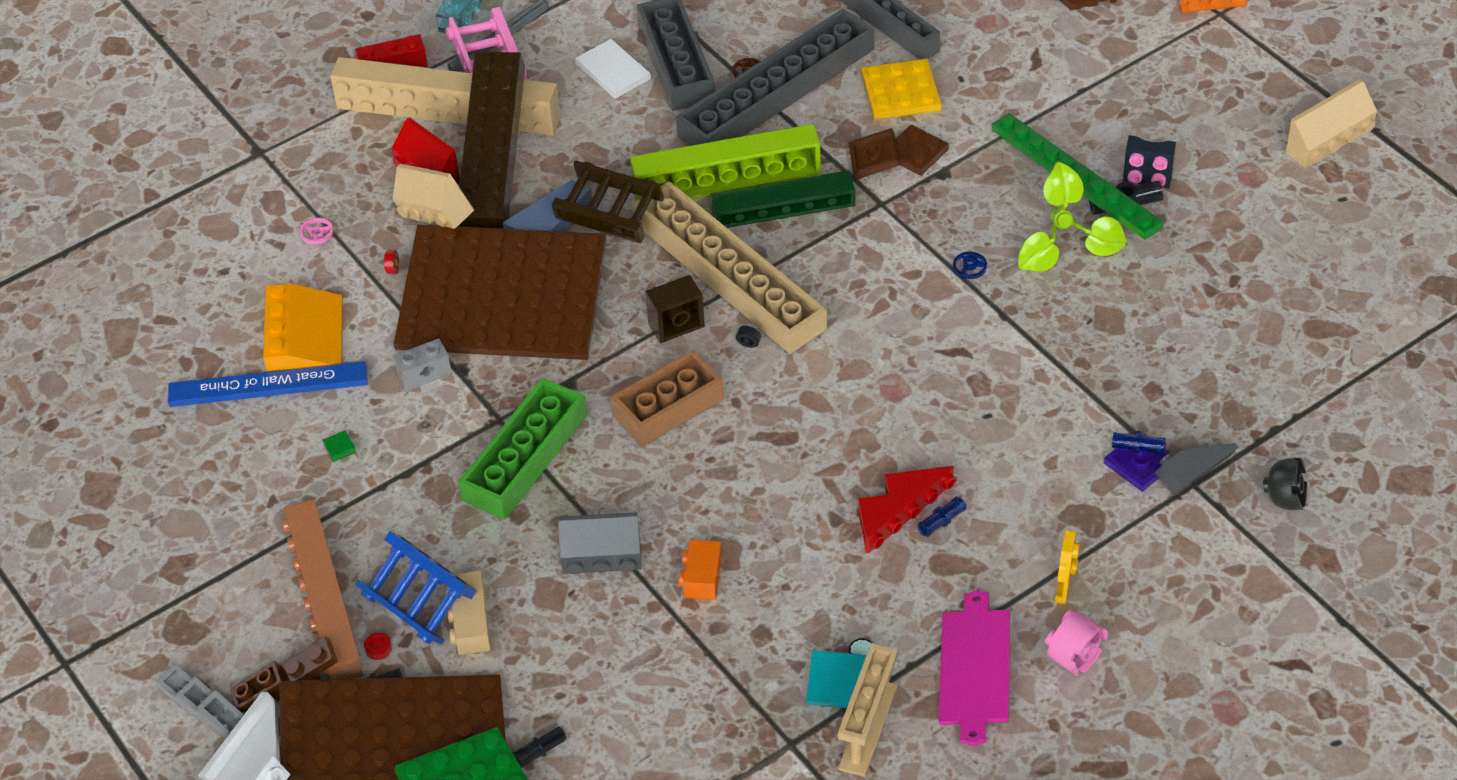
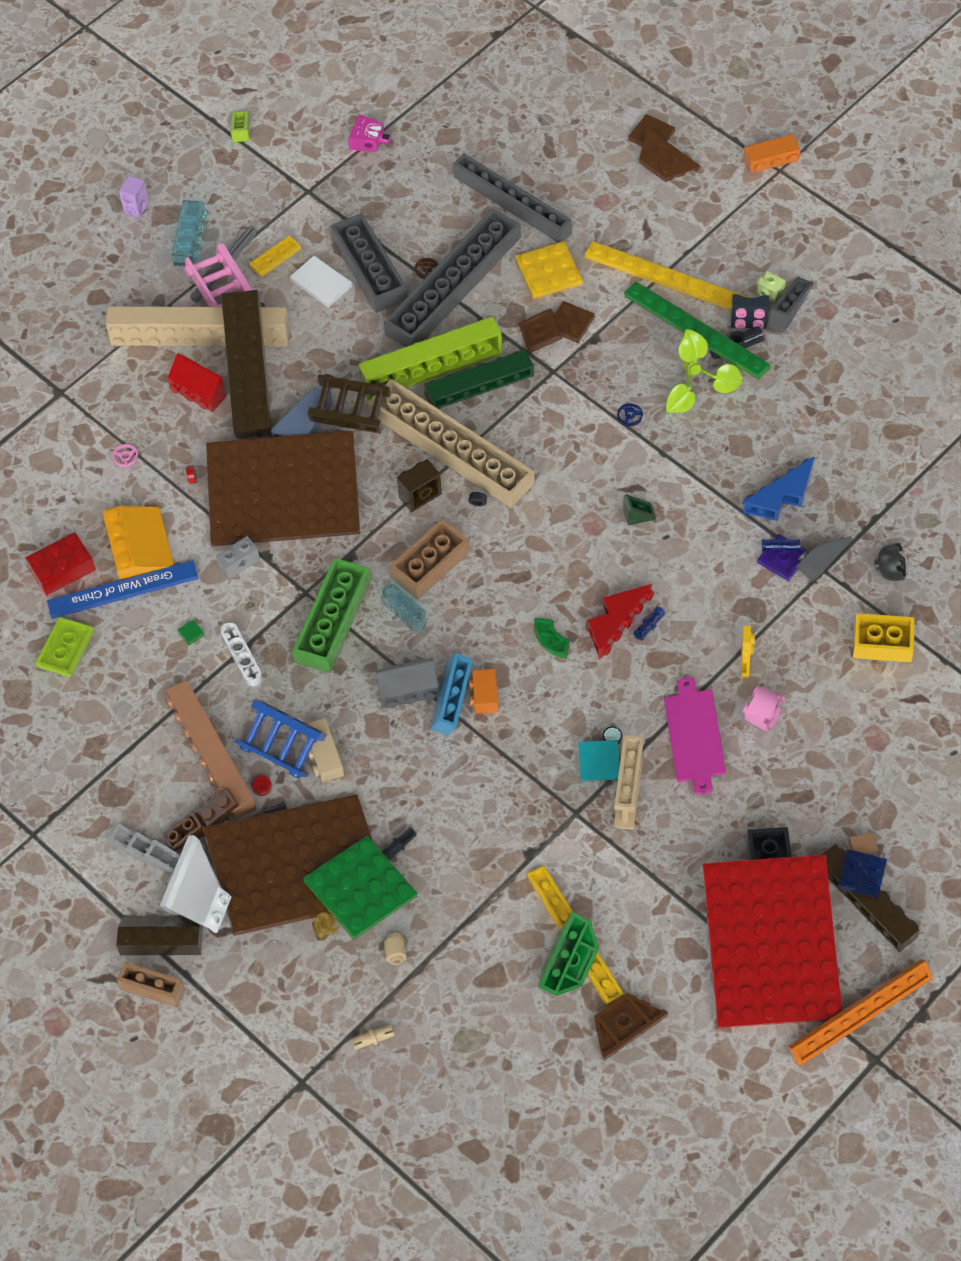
camera: 10 degrees left, 10 degrees up
(174, 441) = (65, 647): none -> lime plate
(198, 342) = (60, 563): none -> red brick
(397, 480) = (240, 654): none -> white beam
(401, 51) = (145, 293): red slope -> none
(429, 196) = (211, 419): tan slope -> none
(562, 34) = (275, 256): none -> yellow plate
(620, 453) = (406, 615): none -> clear light blue beam
(655, 566) = (451, 694): none -> dark azure brick
(805, 518) = (550, 639): none -> green tile
(955, 377) = (637, 510): none -> dark green slope
(1041, 110) = (660, 275): none -> yellow plate
(1161, 378) = (787, 489): none -> blue slope
(1186, 136) = (771, 285): none -> yellowish green brick
(1202, 162) = (789, 304): none -> dark grey slope
(1259, 576) = (883, 637): none -> yellow brick
(1331, 124) = (880, 261): tan slope -> none

